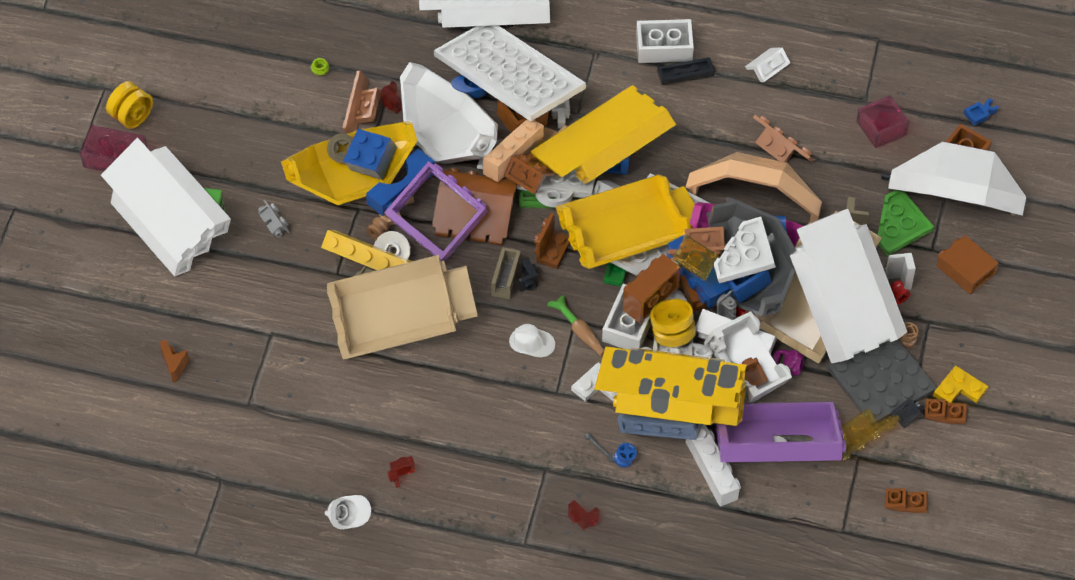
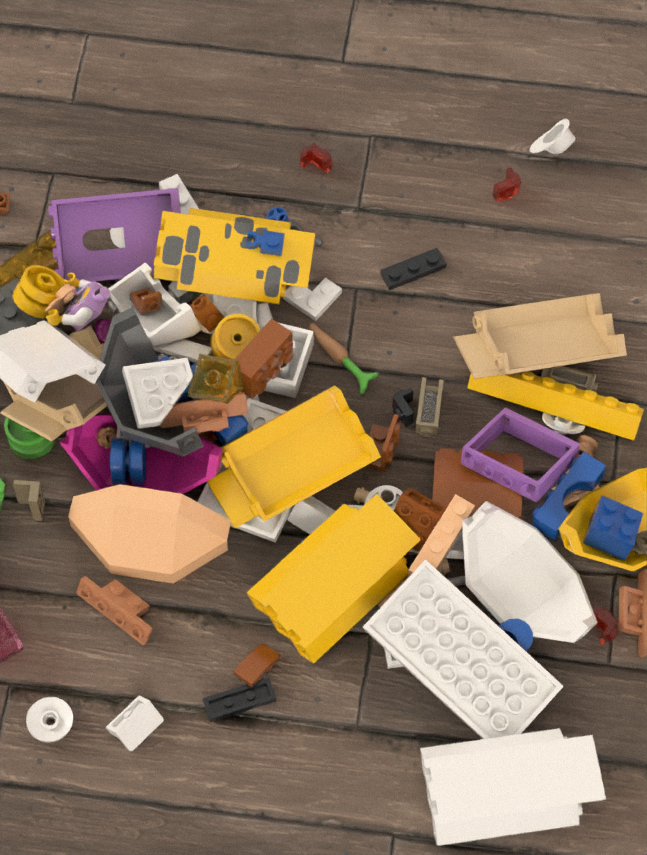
camera: 175 degrees right, 5 degrees up
(502, 403) = (413, 269): none -> black plate
(532, 341) = (390, 339): white piece -> none
(639, 377) = (270, 242): none -> blue plate
(664, 41) = (268, 733): white brick -> none
(668, 91) = (256, 664): none -> dark orange slope
(702, 345) = (206, 312): none -> dark orange bracket
(809, 364) = (84, 307): none -> torso
(829, 369) = (64, 296): none -> light nougat plate
(833, 61) = (49, 709): none -> white dish
(851, 389) = (37, 290): none -> yellow wheel

